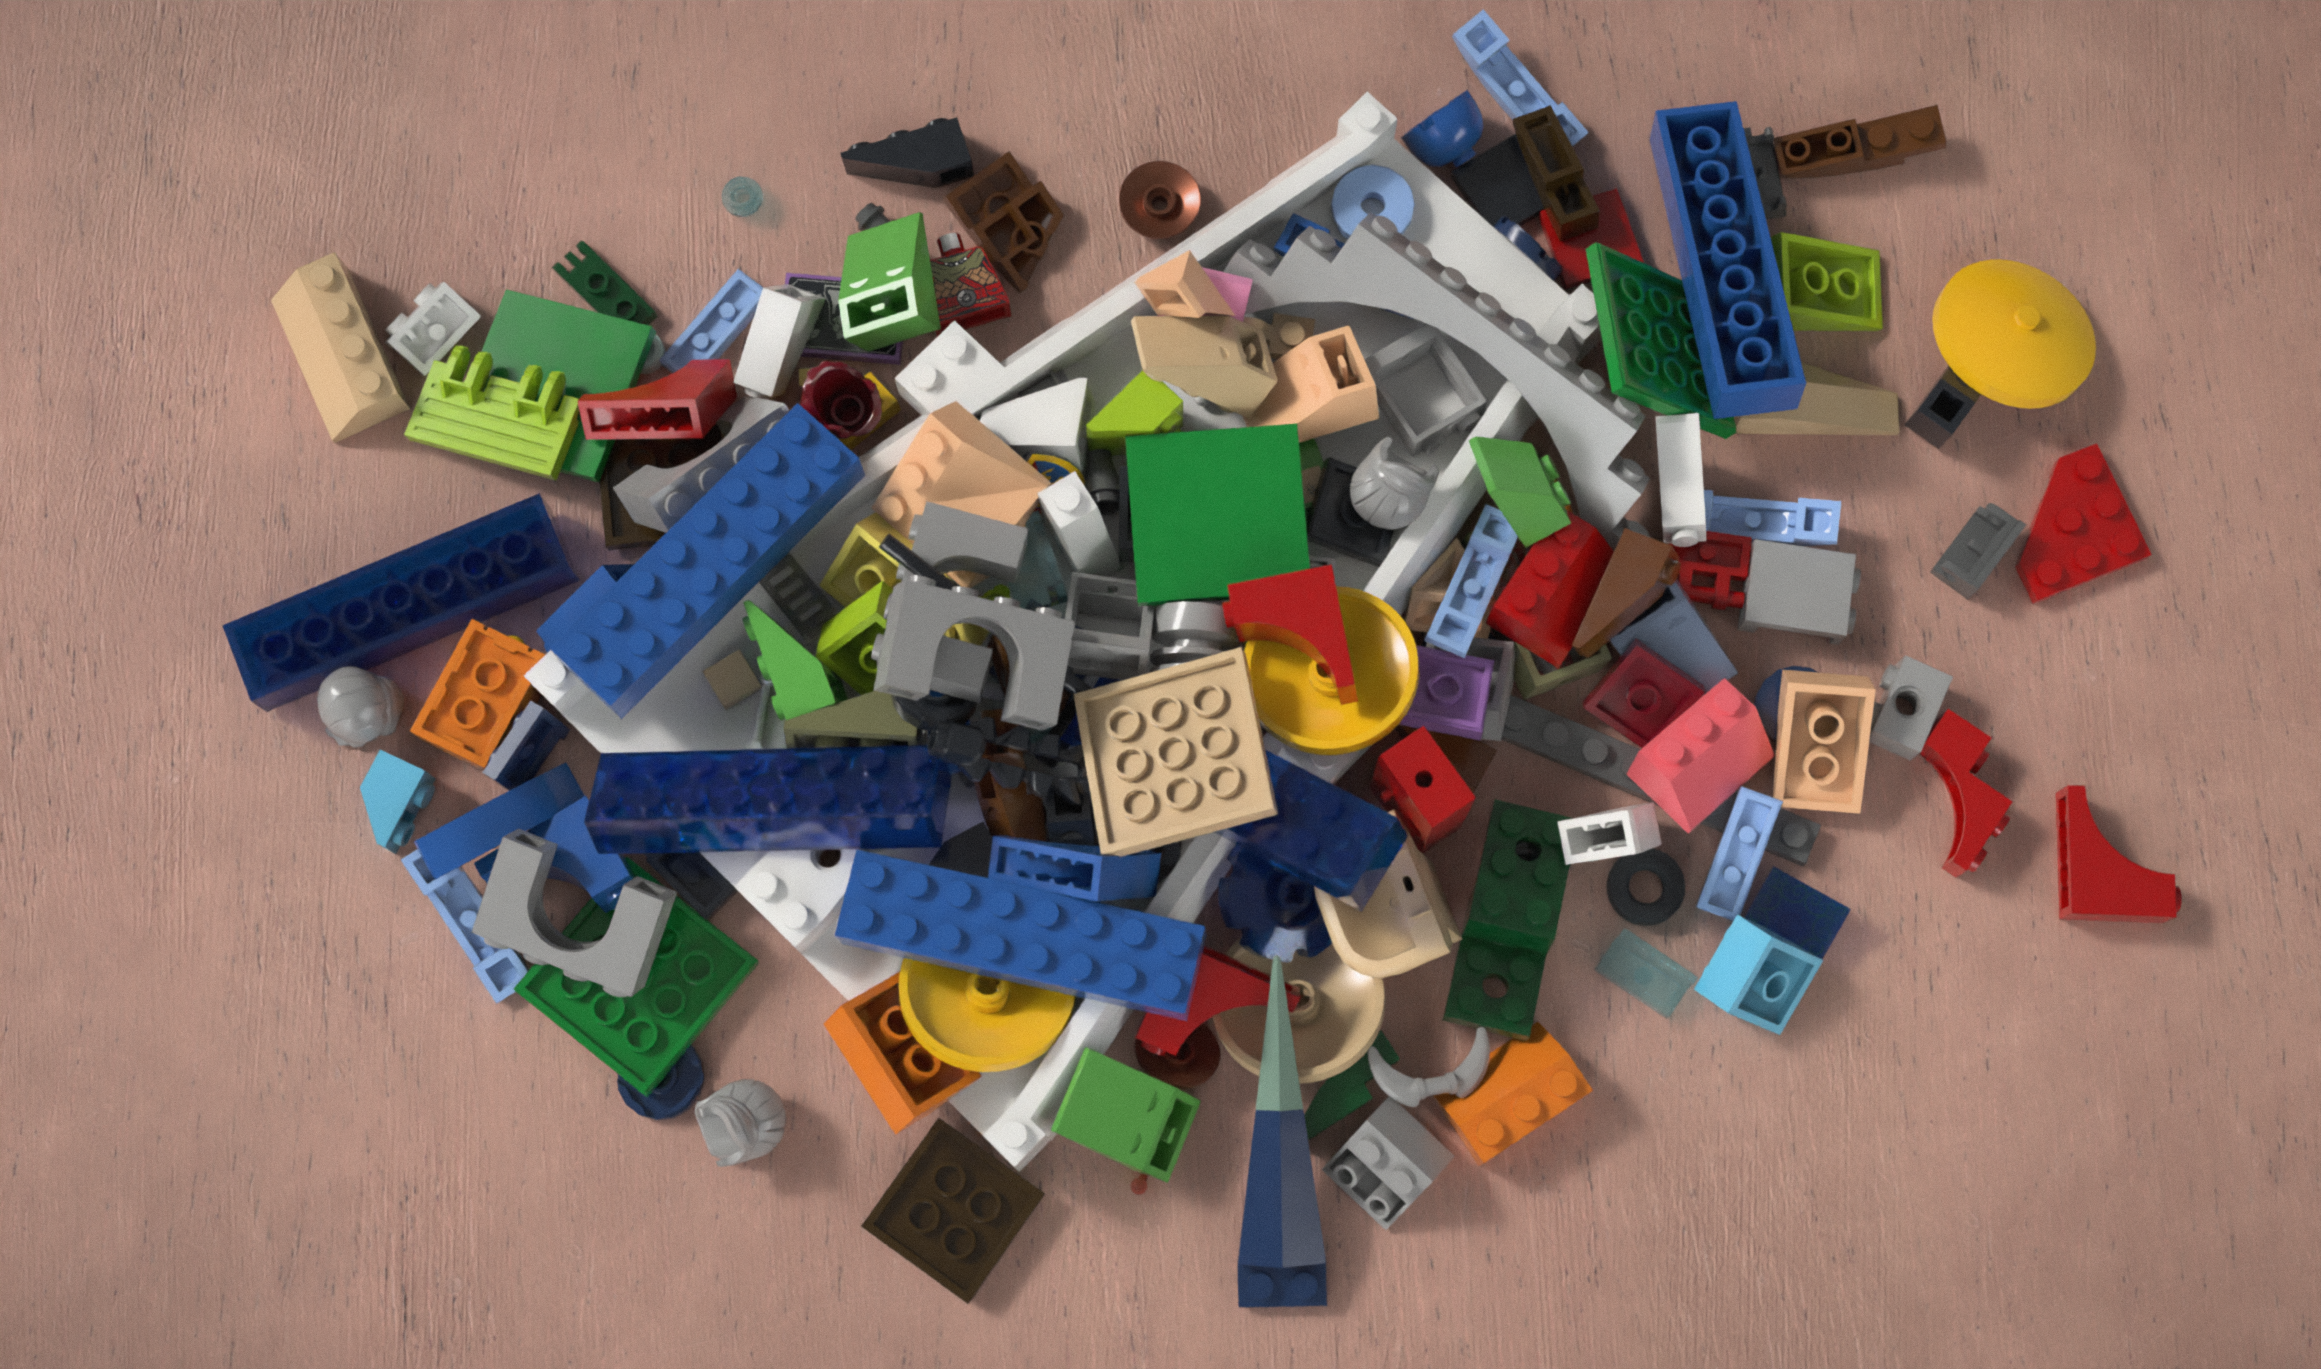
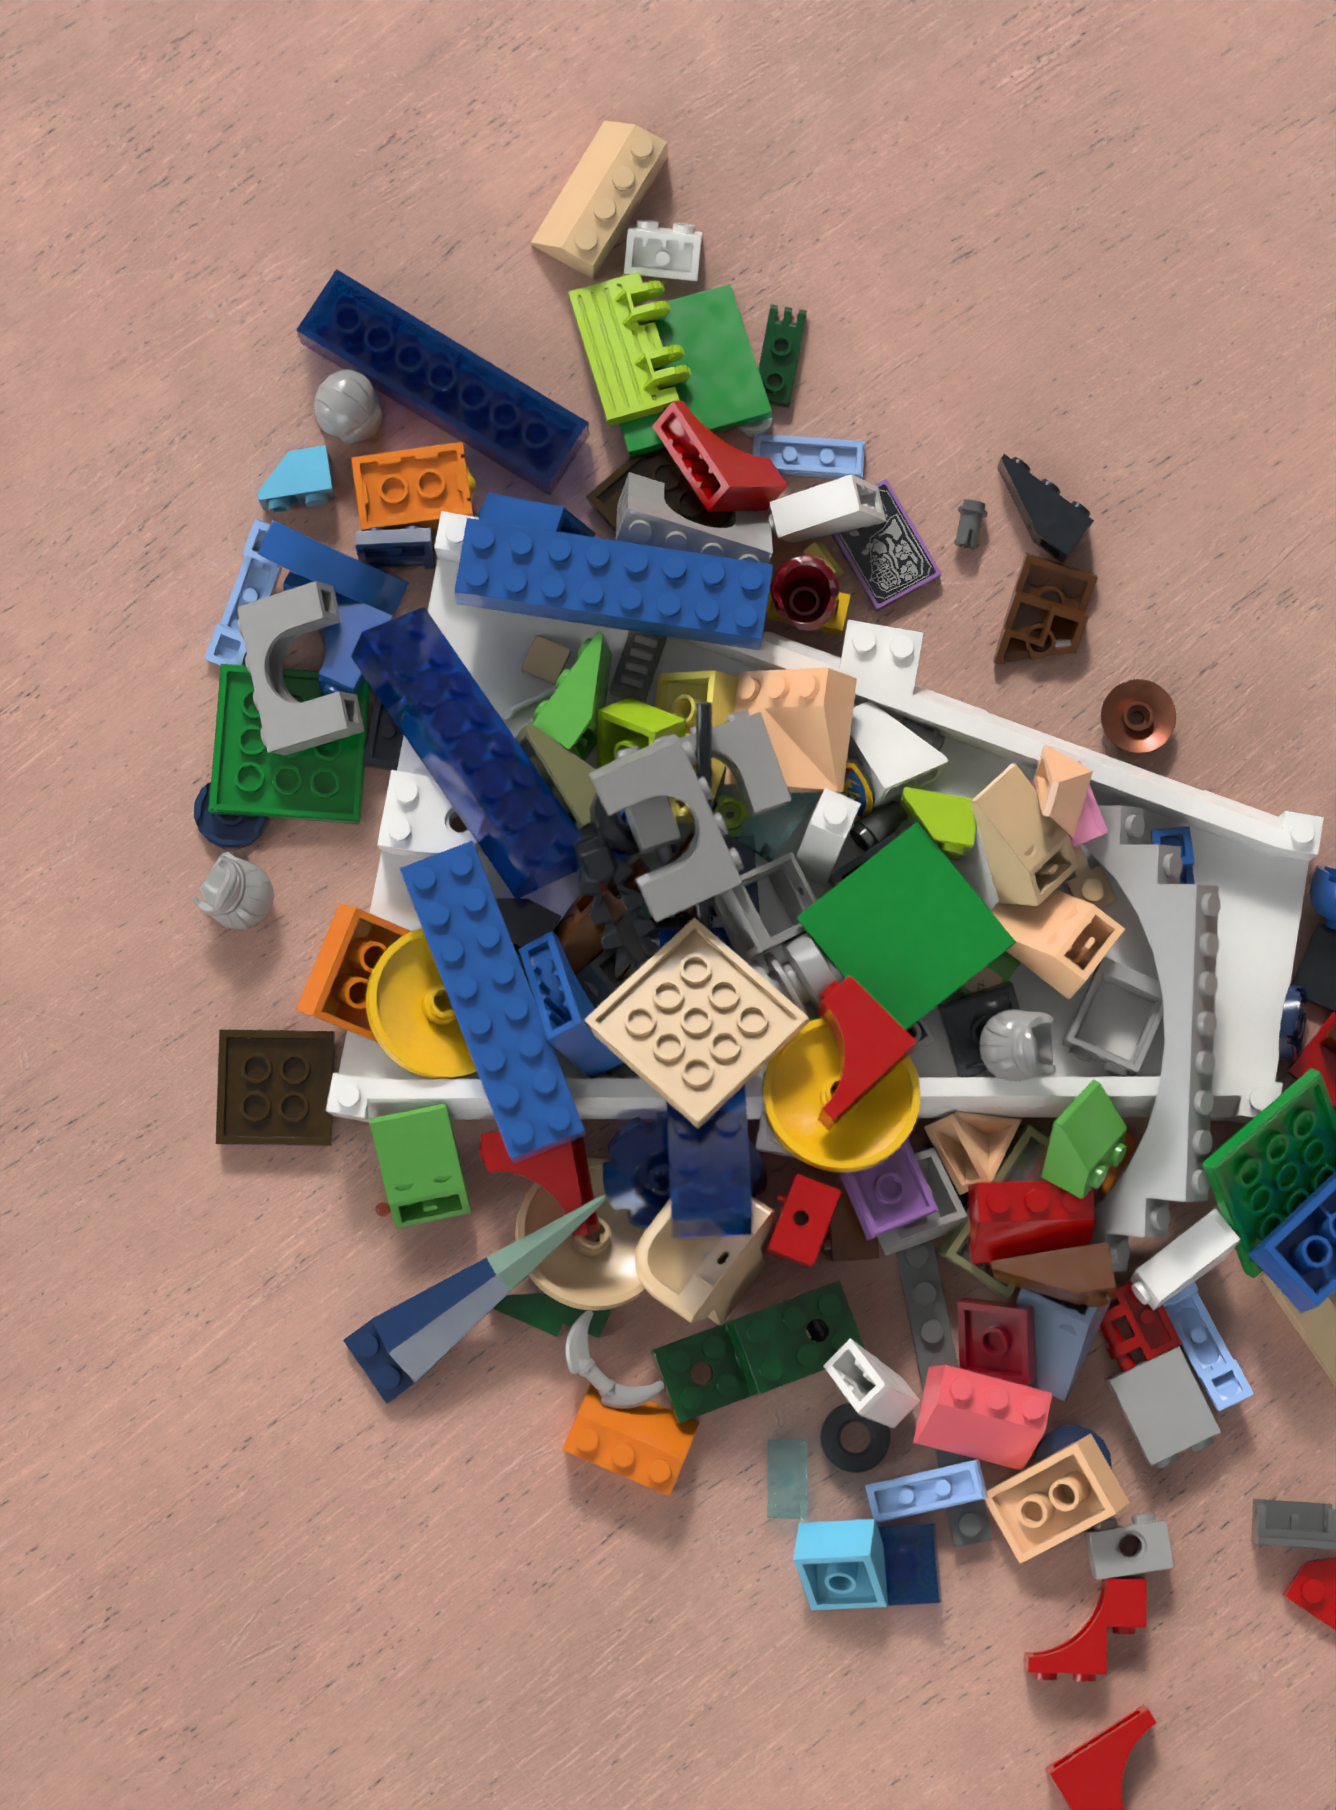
camera: 55 degrees right, 5 degrees up
(739, 186) = (923, 393): clear light blue plate -> none
(888, 285) = (925, 561): bright green slope -> none
(966, 286) = (965, 617): torso -> none
(1196, 1065) = (501, 1192): copper dish -> none
(1376, 183) = (1258, 868): light blue tile -> none
(1388, 1162) = (519, 1380): light grey slope -> none
(1473, 583) = (983, 1156): light blue slope -> none

